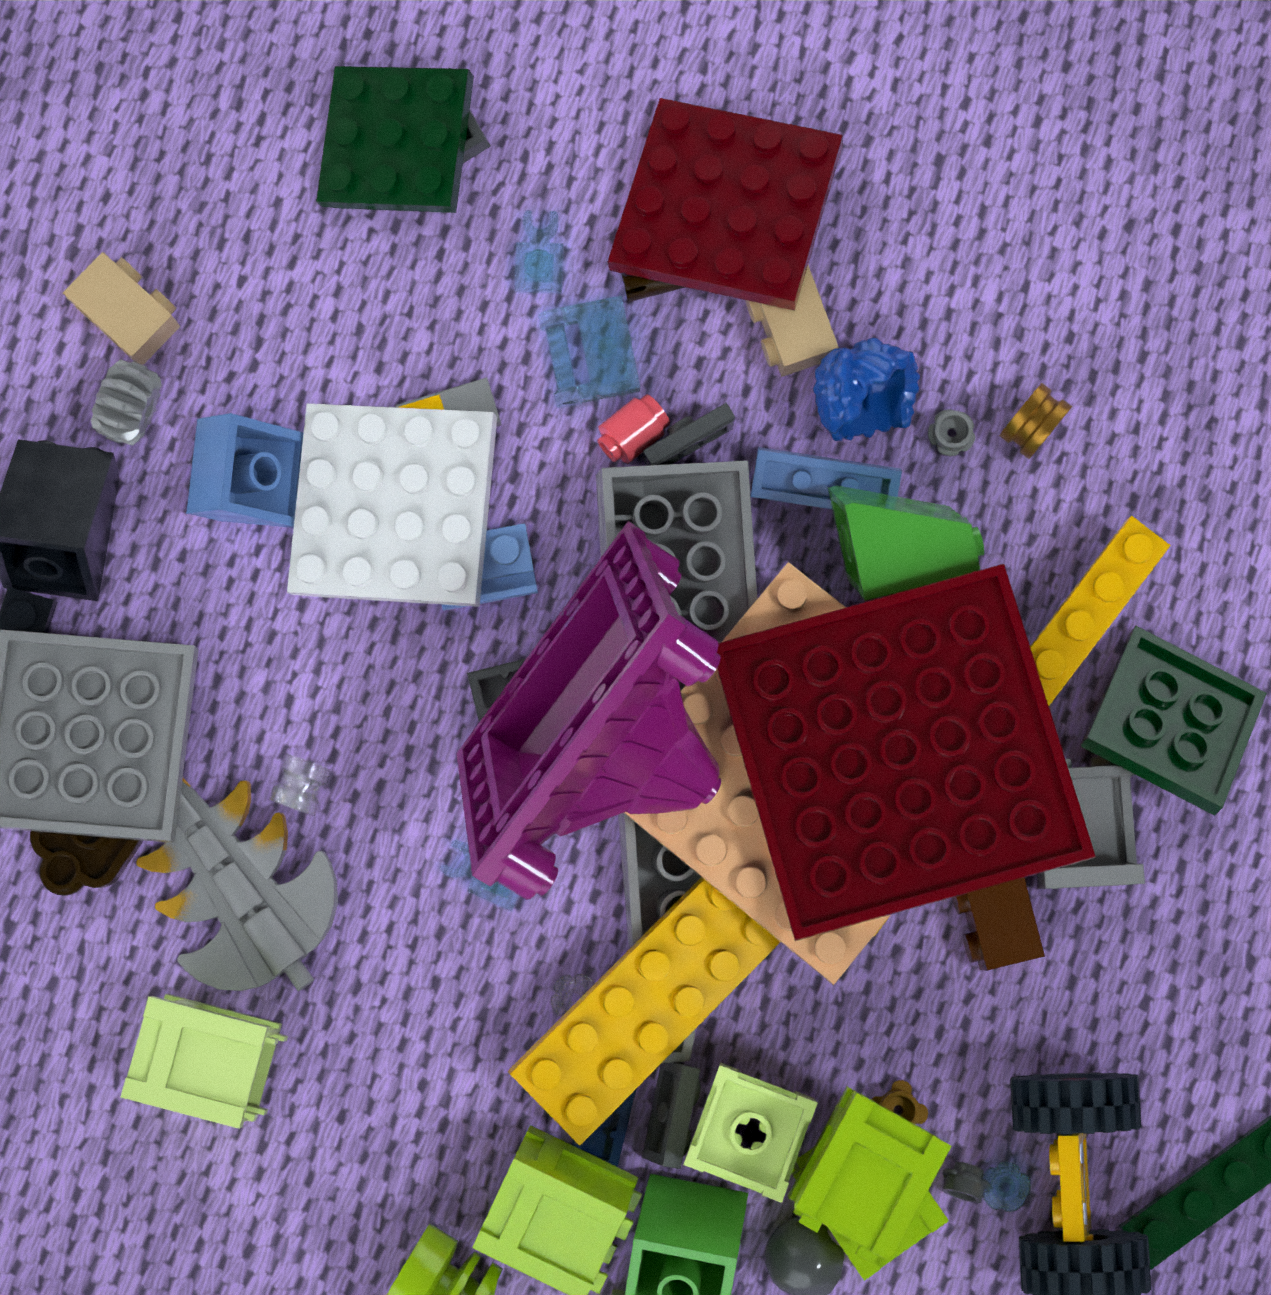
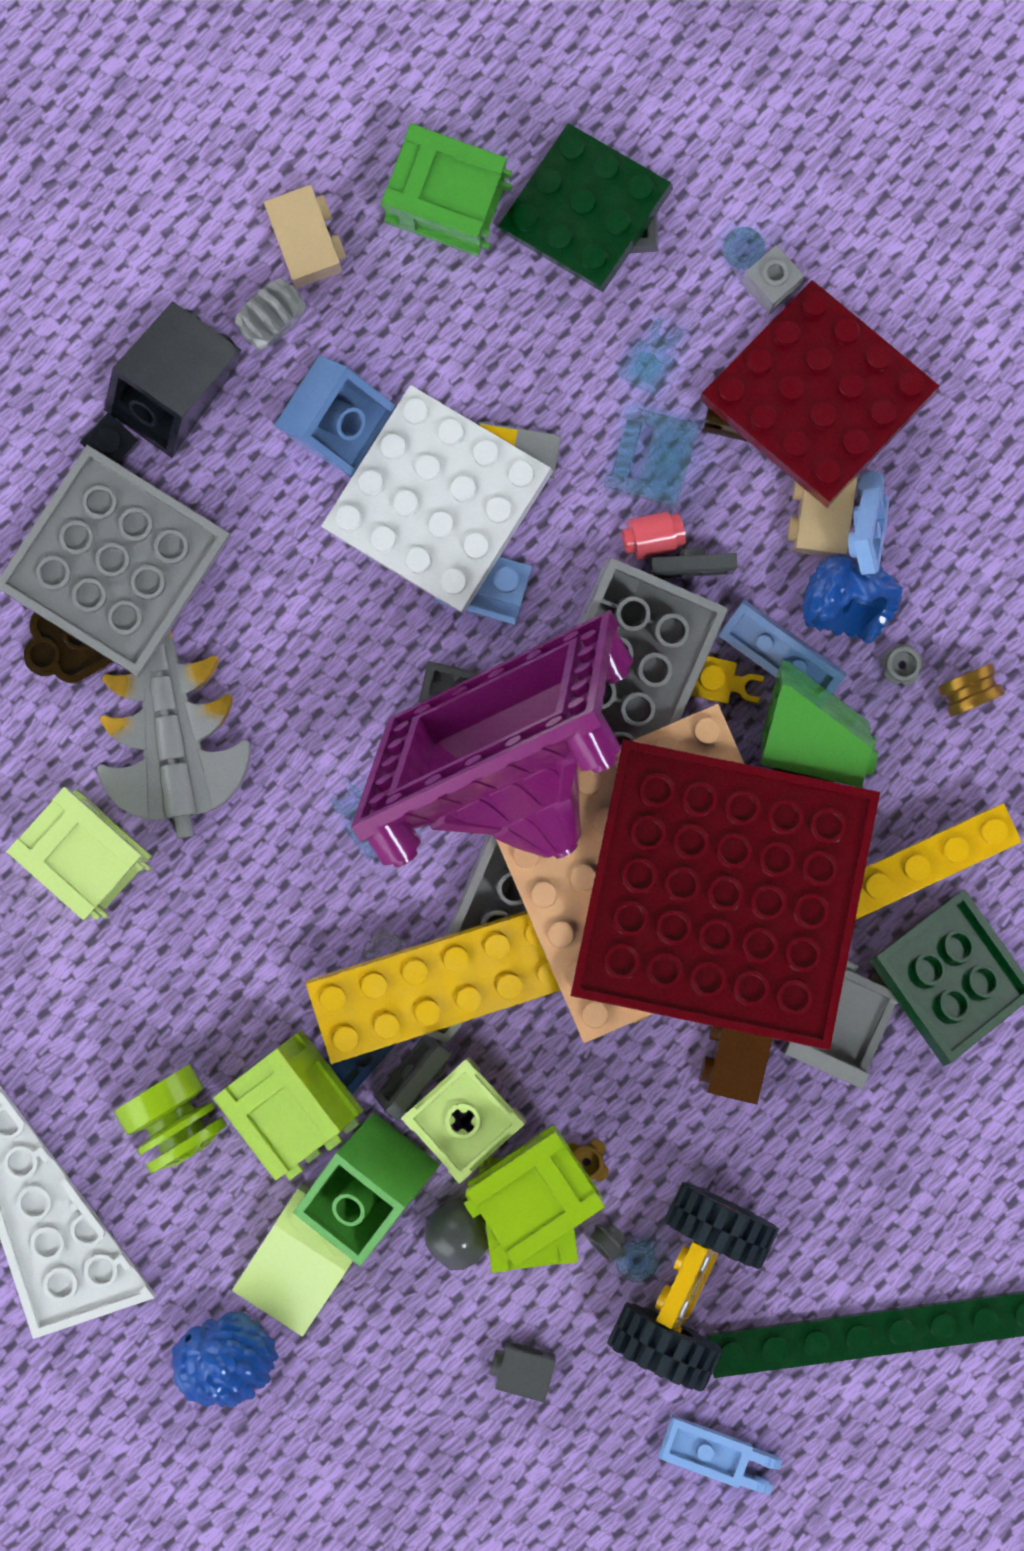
camera: 30 degrees right, 5 degrees up
(243, 189) = (445, 190): none -> bright green container
(300, 784) = (256, 681): clear wheel -> none
(575, 101) = (743, 247): none -> clear light blue plate
(620, 115) = (772, 279): none -> light grey brick
(776, 542) = (719, 680): none -> yellow plate
(845, 303) = (869, 523): none -> light blue hinge

